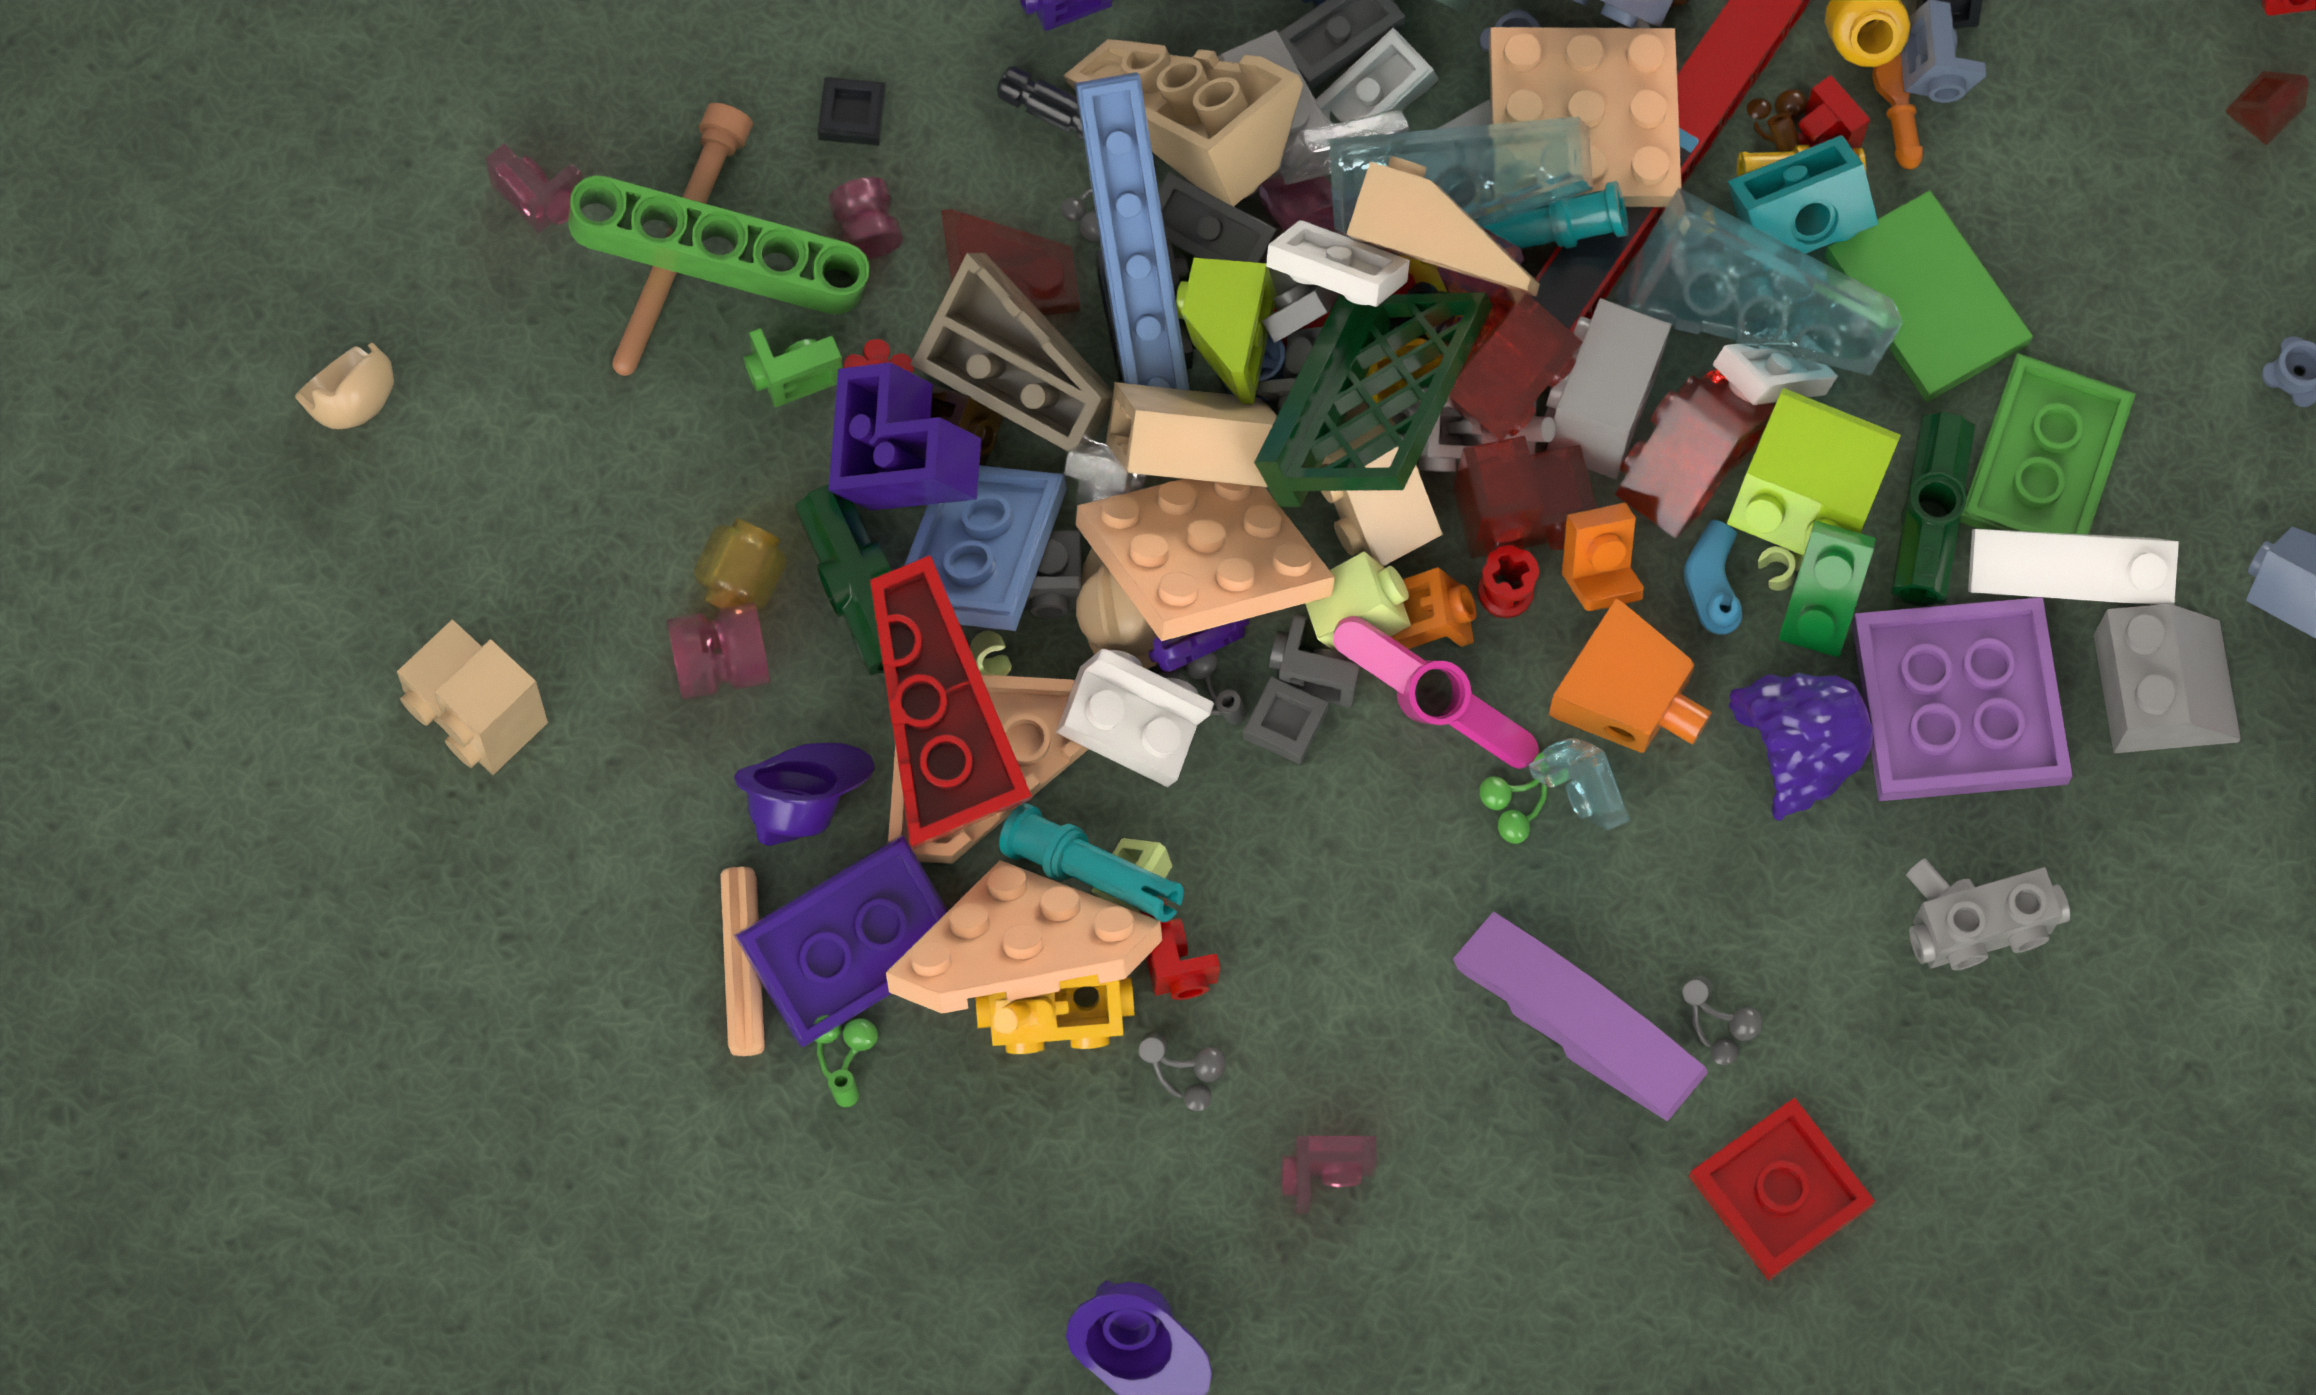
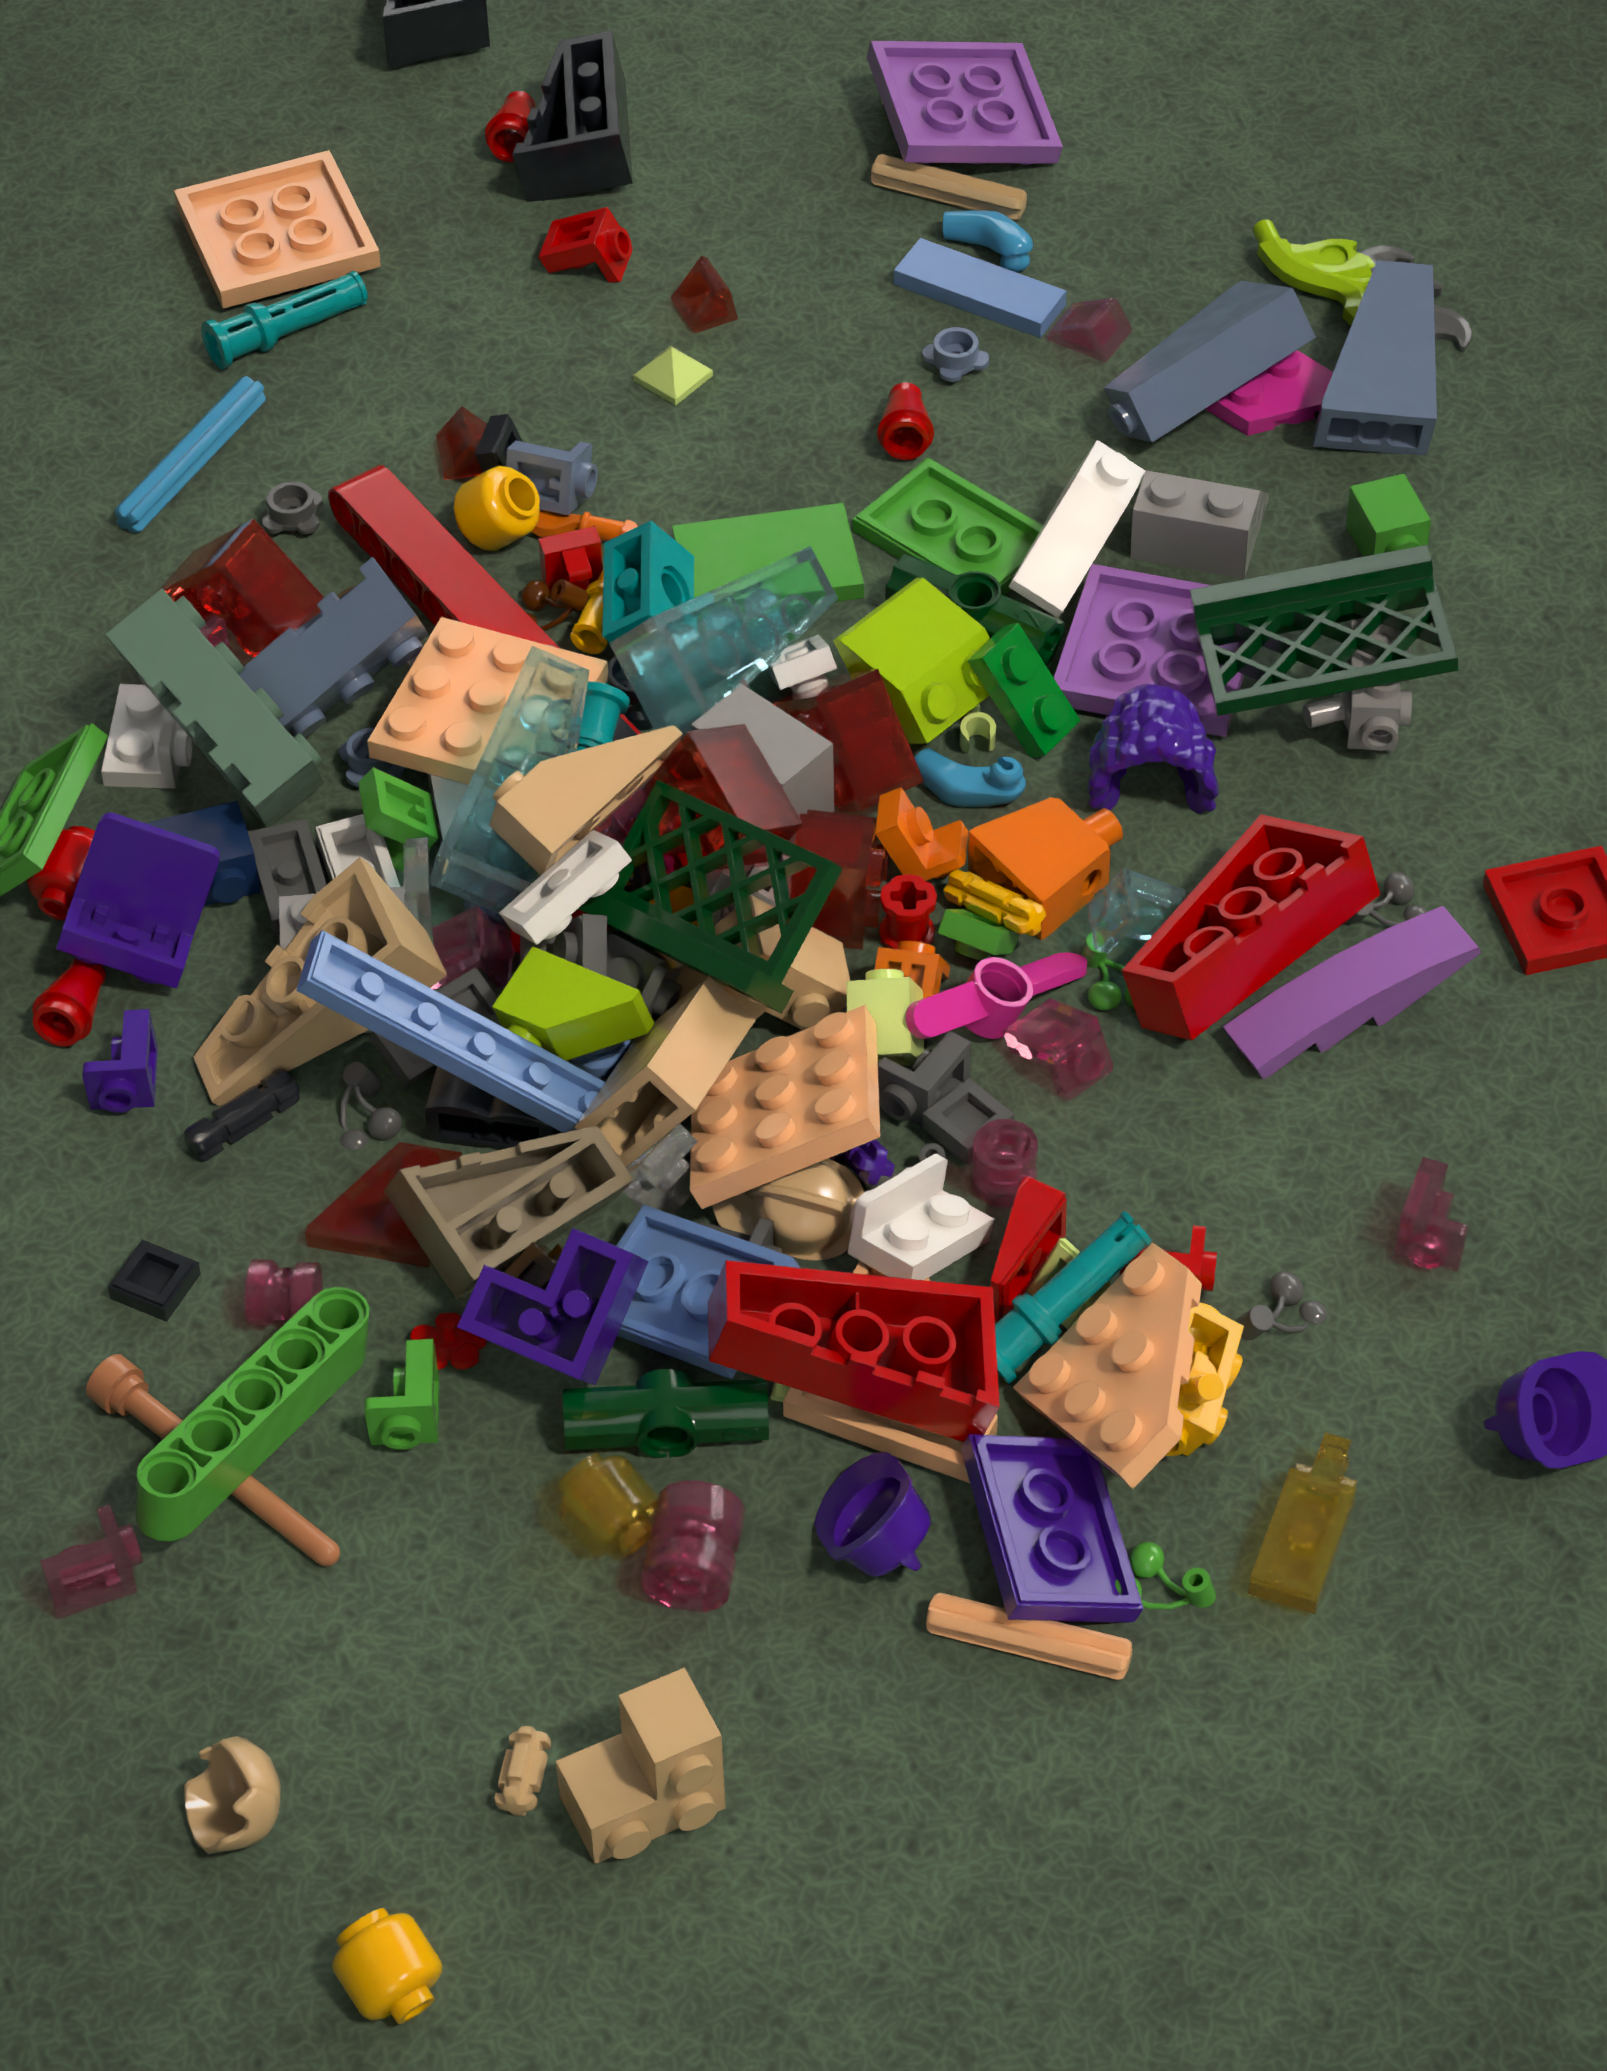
camera: 65 degrees left, 20 degrees down
(235, 567) = (387, 1966): none -> yellow head
(462, 600) = (522, 1771): none -> tan piece
(938, 1160) = (1306, 1529): none -> clear yellow hinge
(1165, 816) = (1029, 1238): none -> red slope
(1238, 781) = (1001, 1158): none -> clear pink wheel
(1408, 772) = (1063, 1041): none -> clear pink bracket
(1431, 87) = (397, 812): none -> bright green bracket
(1515, 653) = (977, 935): none -> bright green plate
(1554, 654) = (994, 902): none -> yellow axle
(1605, 889) = (1248, 922): none -> red wedge
(2052, 830) = (1317, 601): none -> dark green fence
(2152, 114) = (673, 375): none -> yellowish green slope
(2171, 355) = (905, 424): none -> red cone
(2232, 868) = (1386, 516): none -> bright green brick

